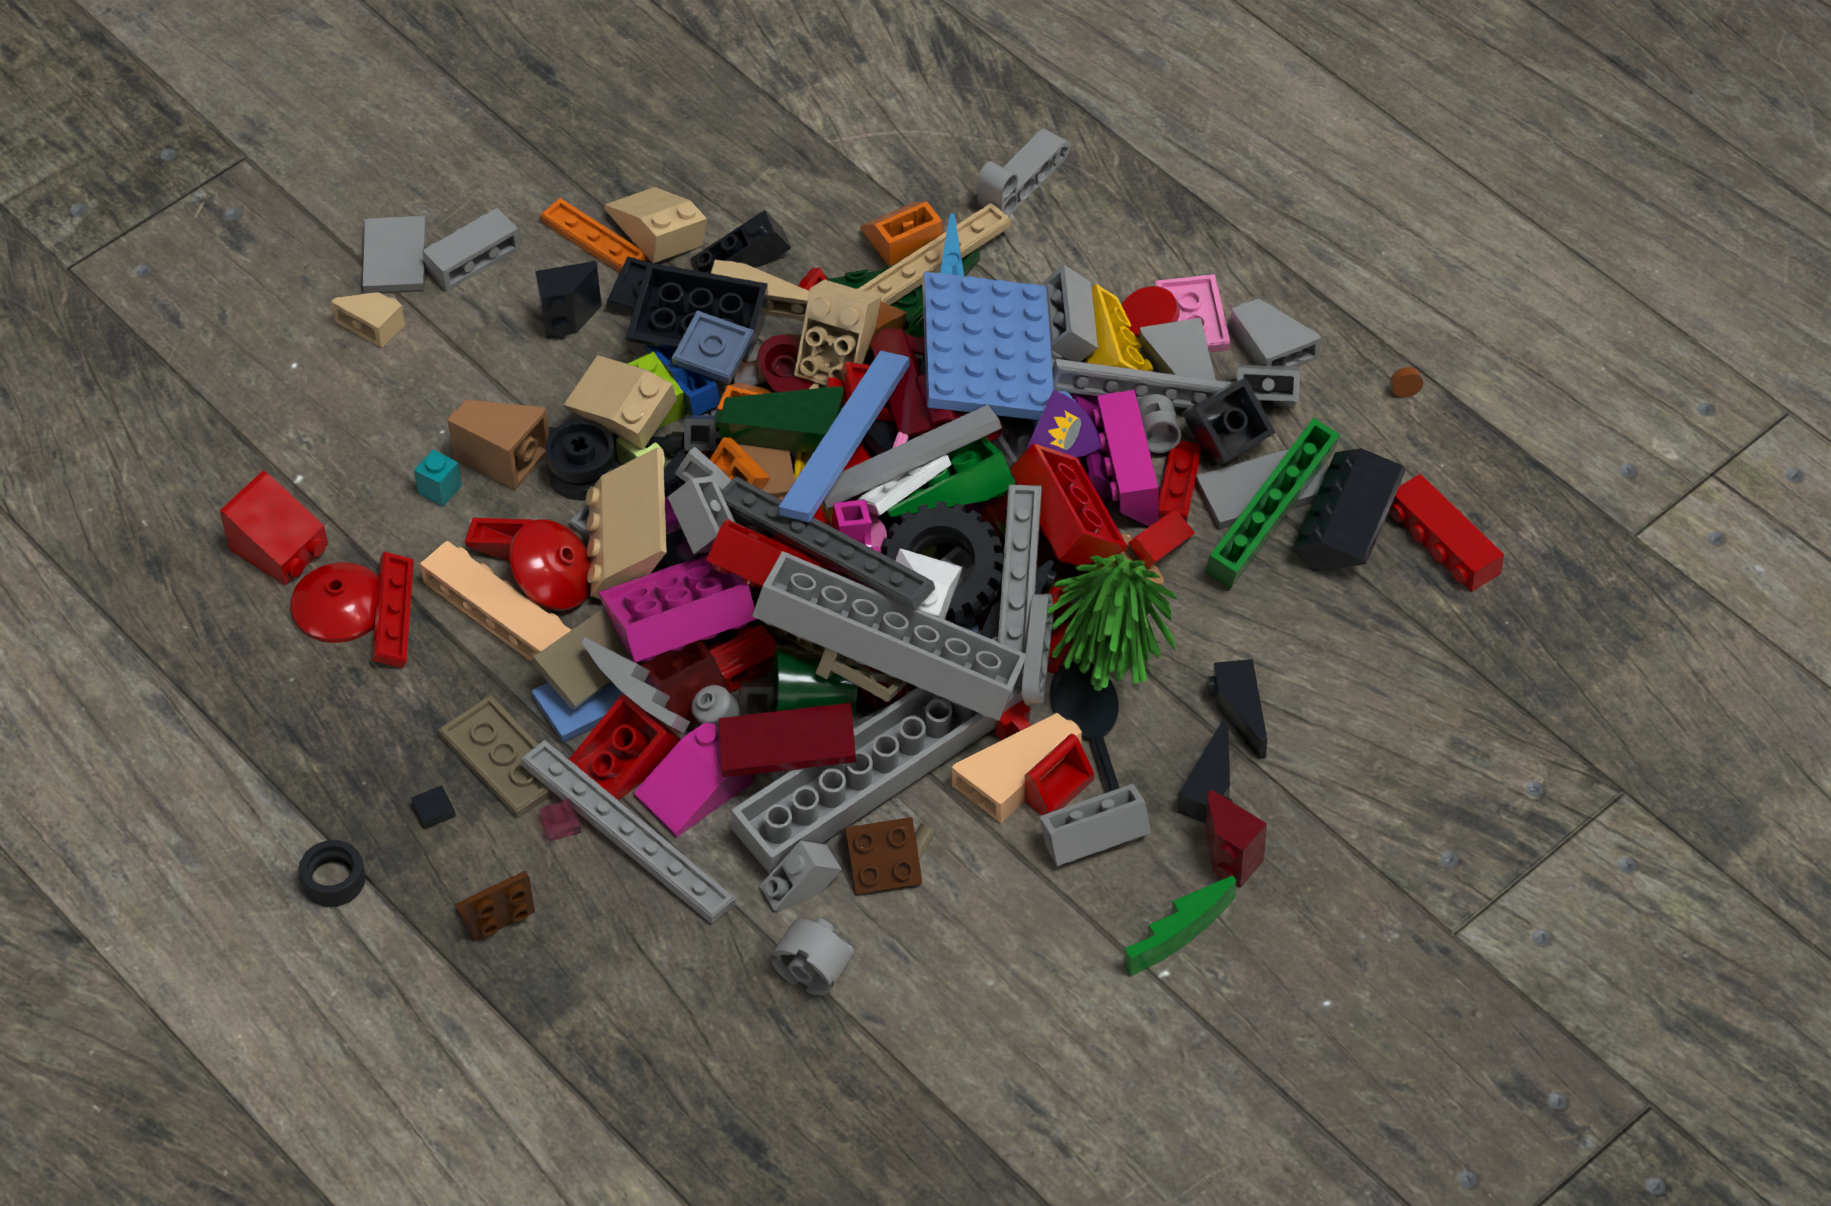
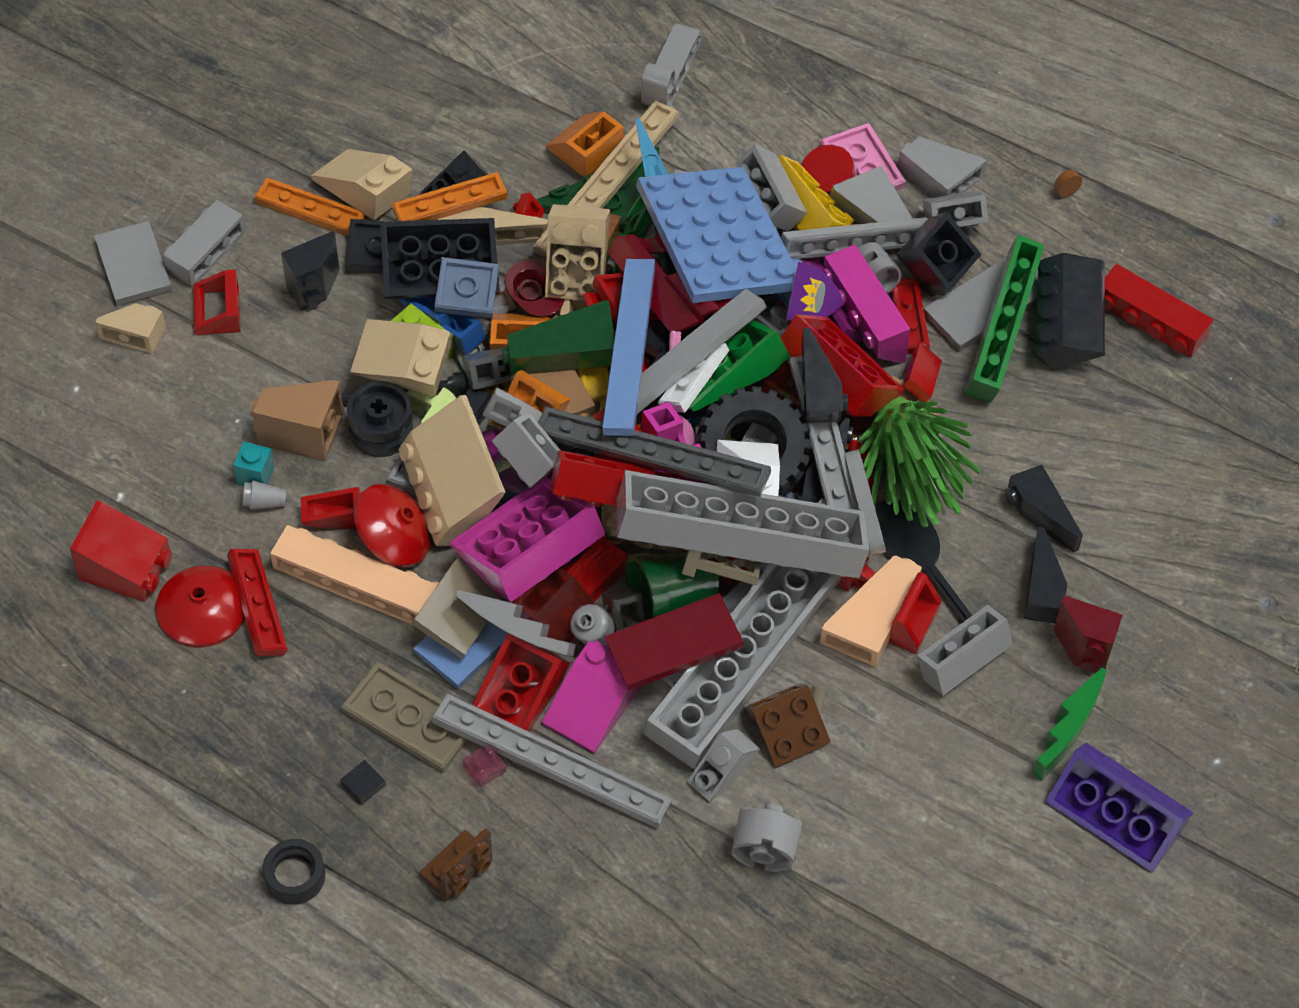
camera: 20 degrees left, 5 degrees up
(437, 509) = (261, 495): none -> light grey cone
(471, 329) = (227, 322): none -> red tile
(736, 257) = (451, 199): none -> orange tile
(1025, 526) = (821, 384): none -> black slope
(1197, 1018) = (1119, 806): none -> dark purple slope

